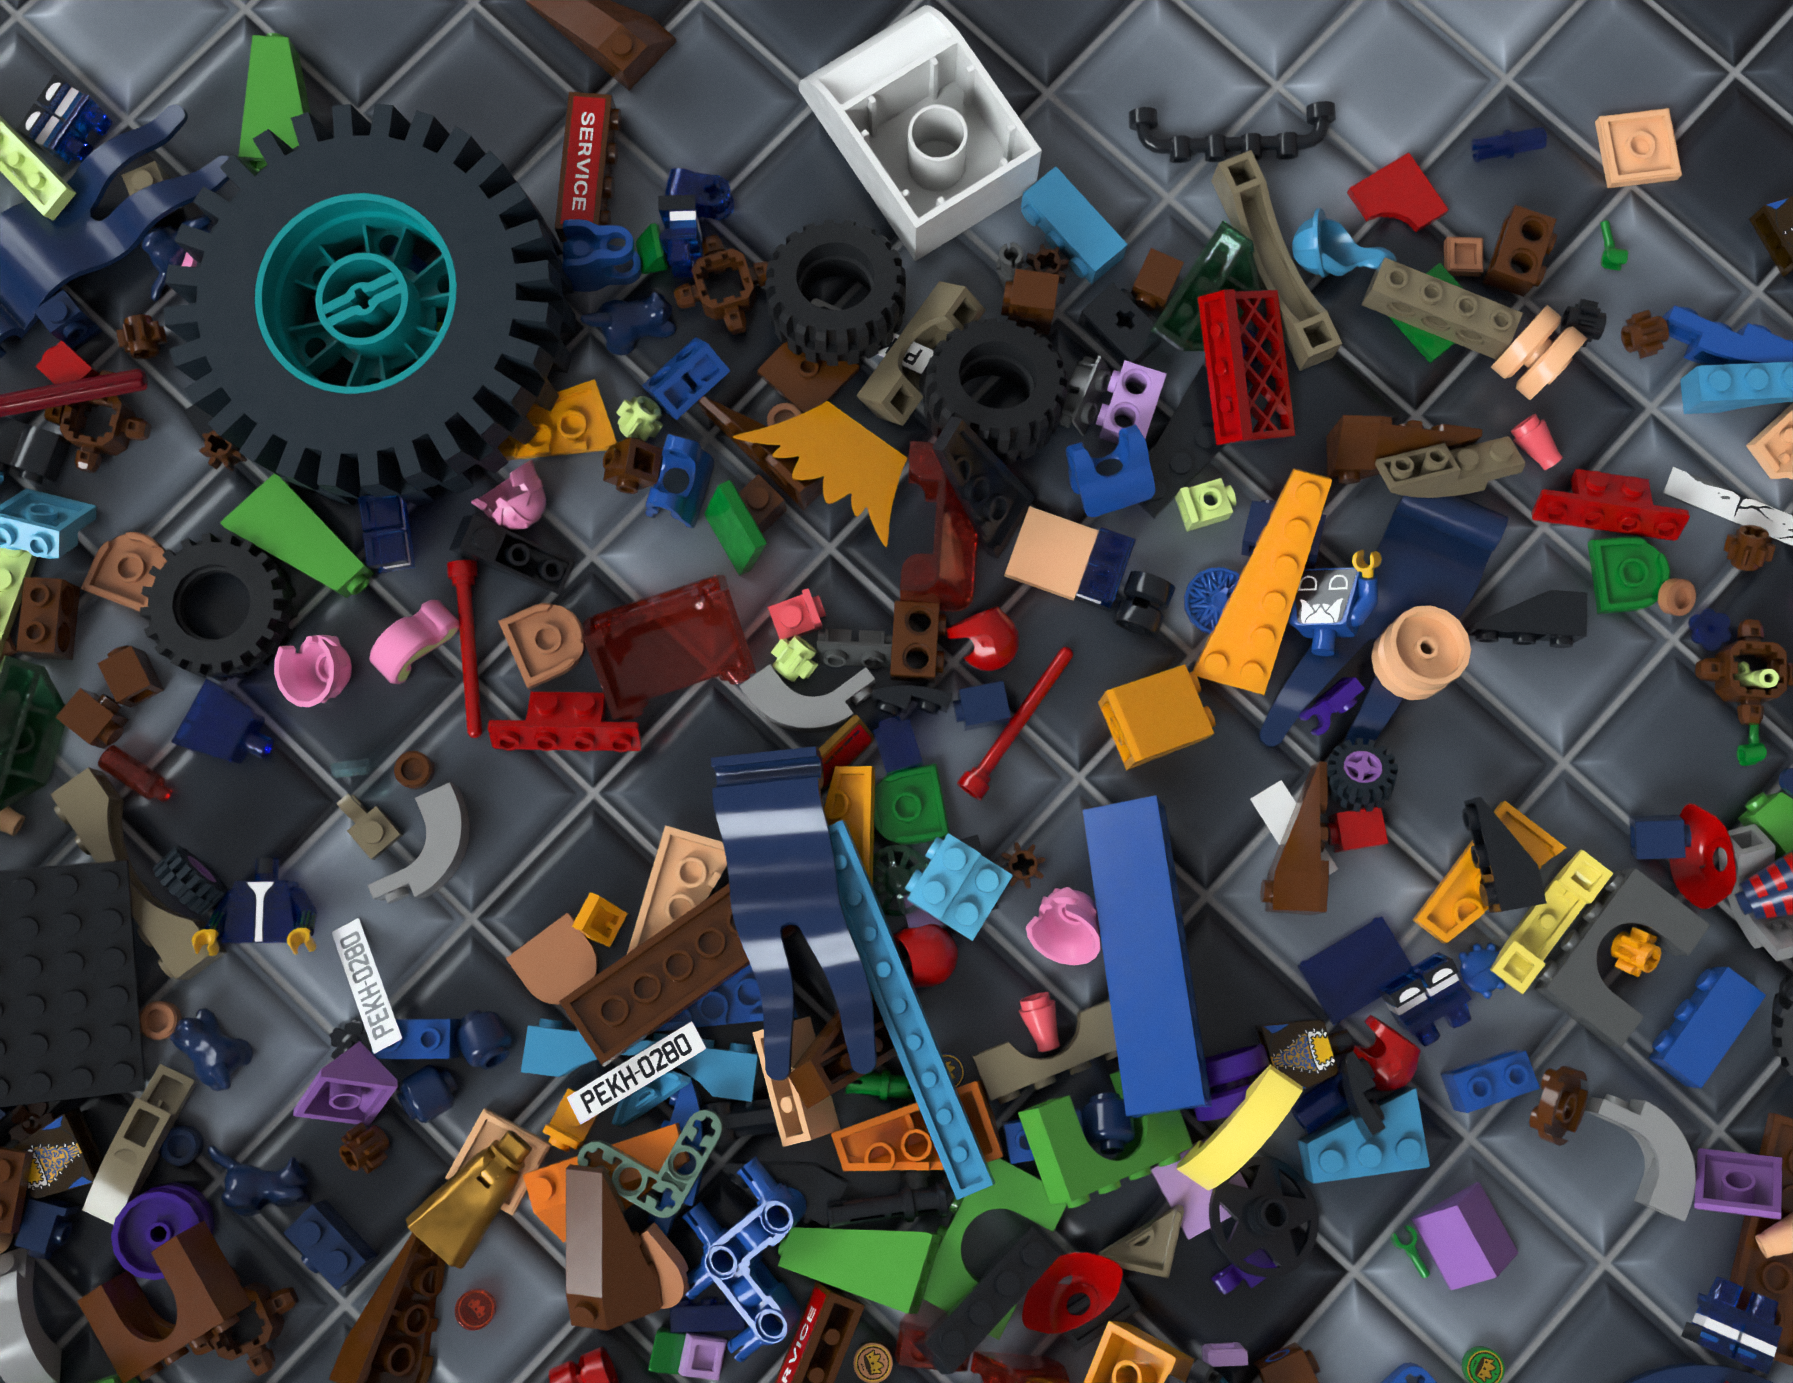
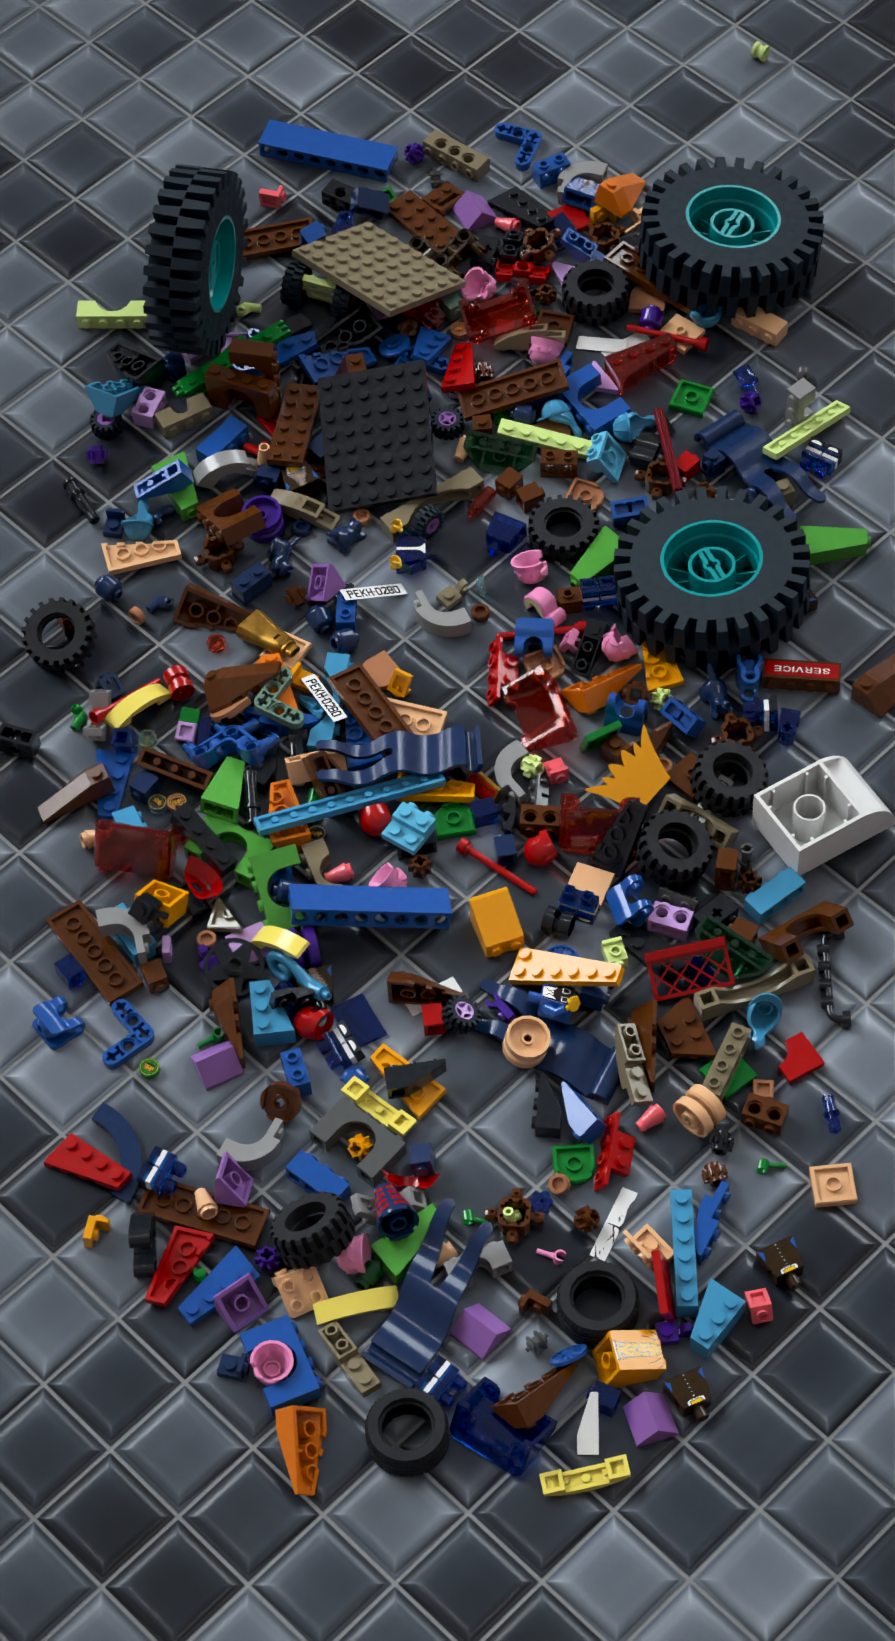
camera: 95 degrees right, 25 degrees down
(182, 476) = (626, 509): none -> blue brick
(395, 593) = (569, 599): none -> reddish brown brick
(482, 652) = (534, 631): none -> blue piece
(494, 593) = (569, 641): none -> bright pink tile
(617, 541) = (593, 695): none -> orange wedge
(1123, 147) = (784, 940): none -> reddish brown arch
(1192, 1276) = (207, 938): none -> nougat tile
(1328, 1053) = (288, 967): none -> dark azure plant
(1360, 381) = (685, 1032): none -> reddish brown wing
(1369, 1221) = (226, 1012): none -> reddish brown wedge
(1549, 557) = (581, 1116): none -> slope

